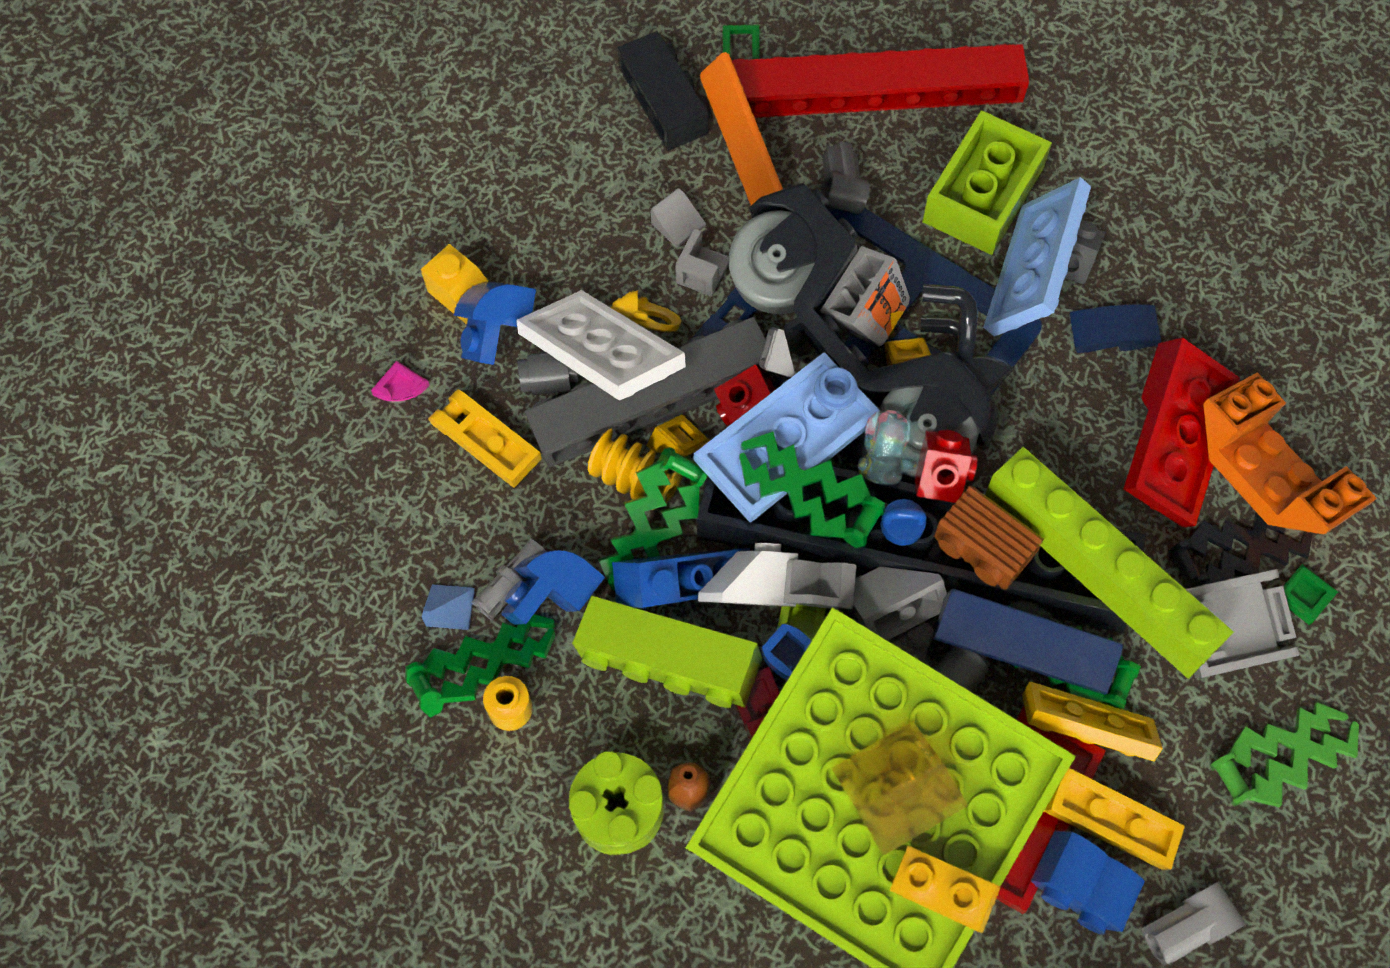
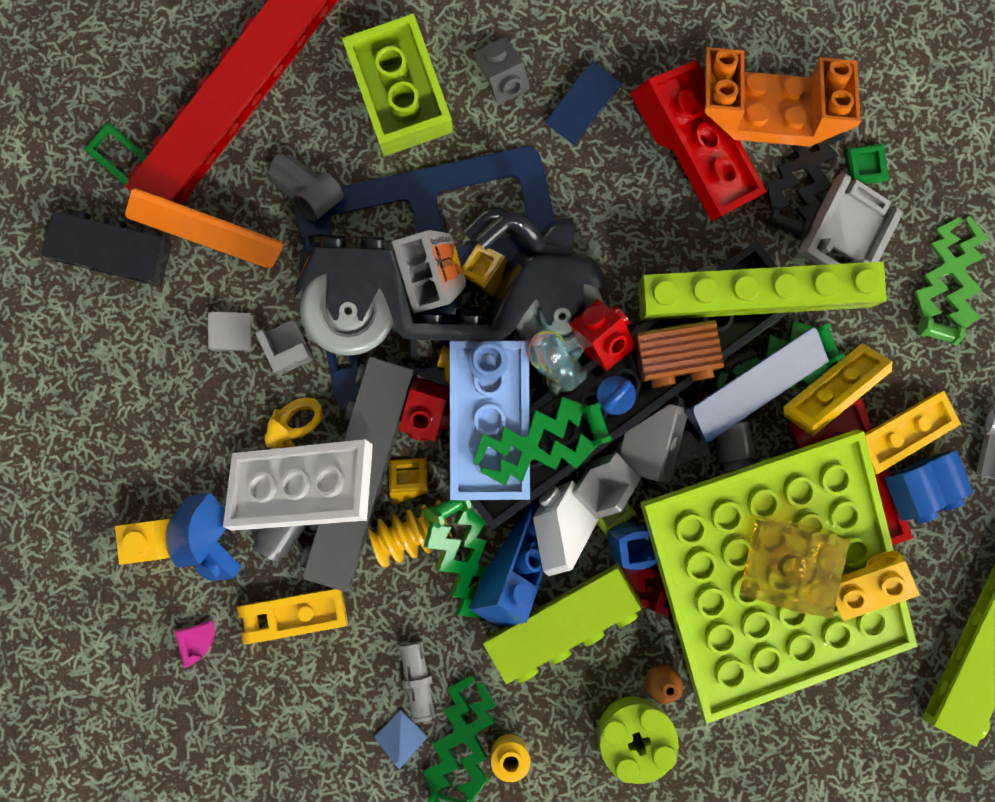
camera: 55 degrees left, 20 degrees up
(555, 575) = (442, 658): blue brick -> none
(776, 353) = (418, 374): light grey slope -> none
(1037, 258) = (493, 110): light blue plate -> none

